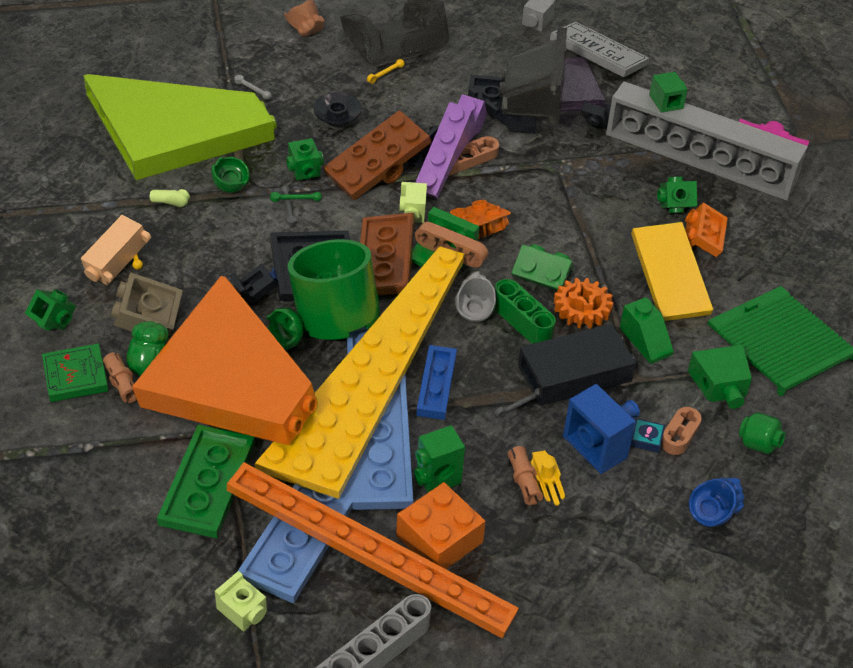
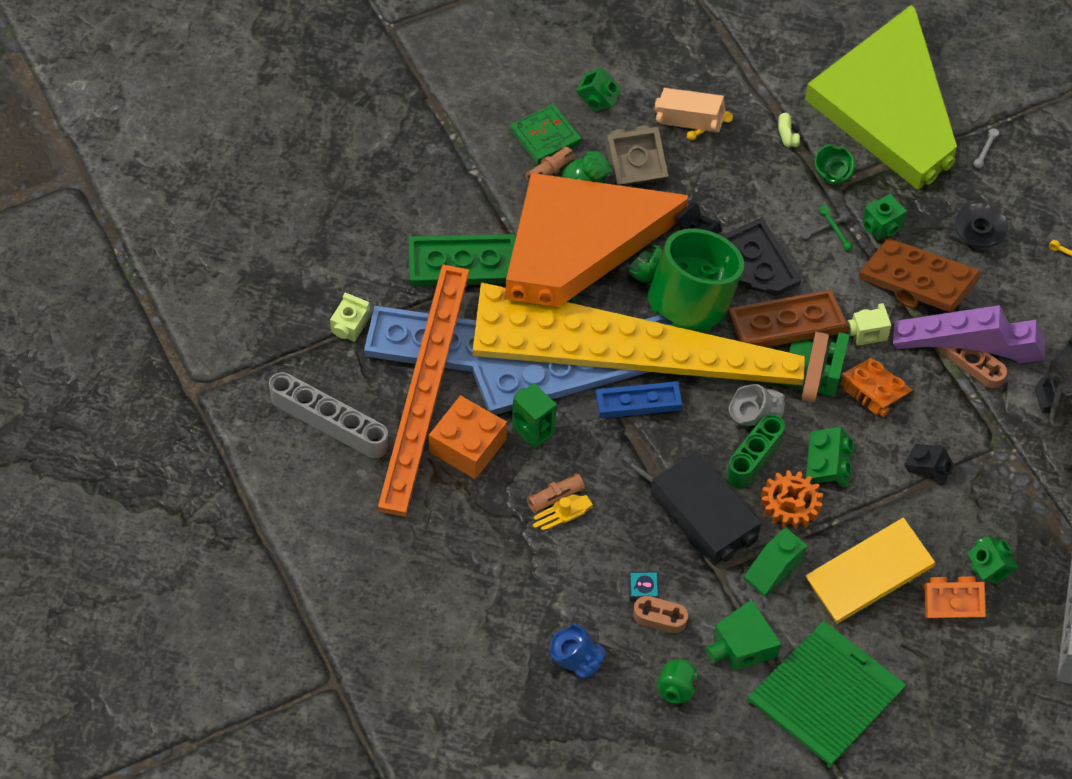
camera: 75 degrees right, 10 degrees up
(565, 207) = (930, 460): none -> black bracket
(600, 427) = (621, 535): blue brick -> none

